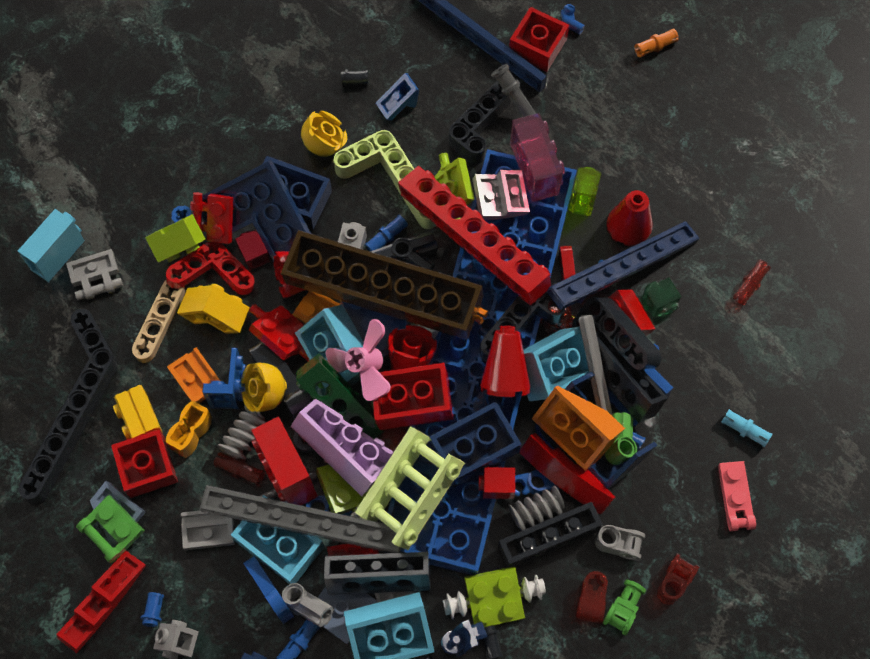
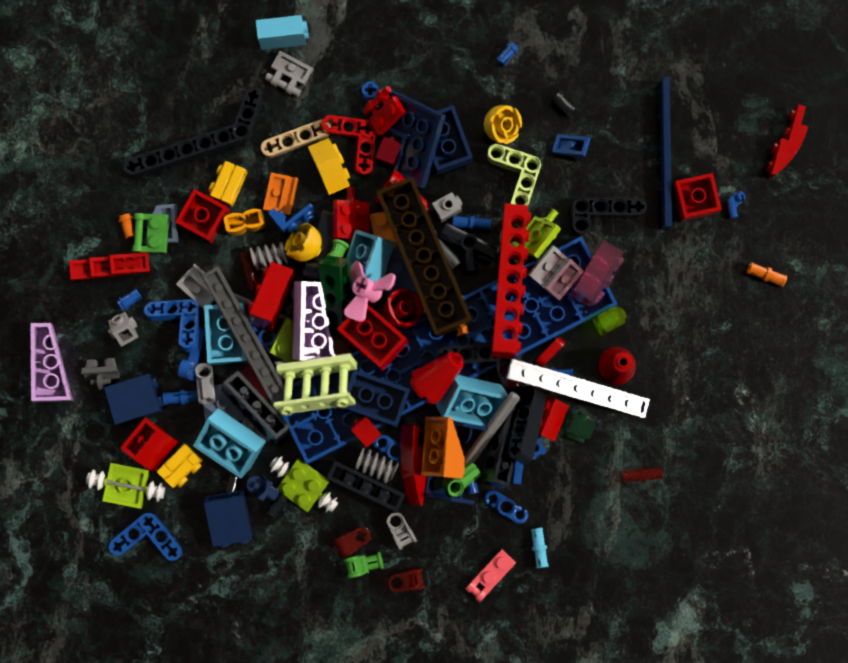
camera: 45 degrees right, 15 degrees up
(81, 547) = (127, 225): none -> orange pin
(175, 238) = (349, 102): lime brick -> none
(223, 566) = (184, 317): none -> blue beam
(266, 85) = (510, 50): none -> blue pin
(299, 359) = (339, 248): none -> bright green bush
(511, 88) = (640, 213): dark grey pin -> none
(668, 424) = (501, 498): none -> blue piece

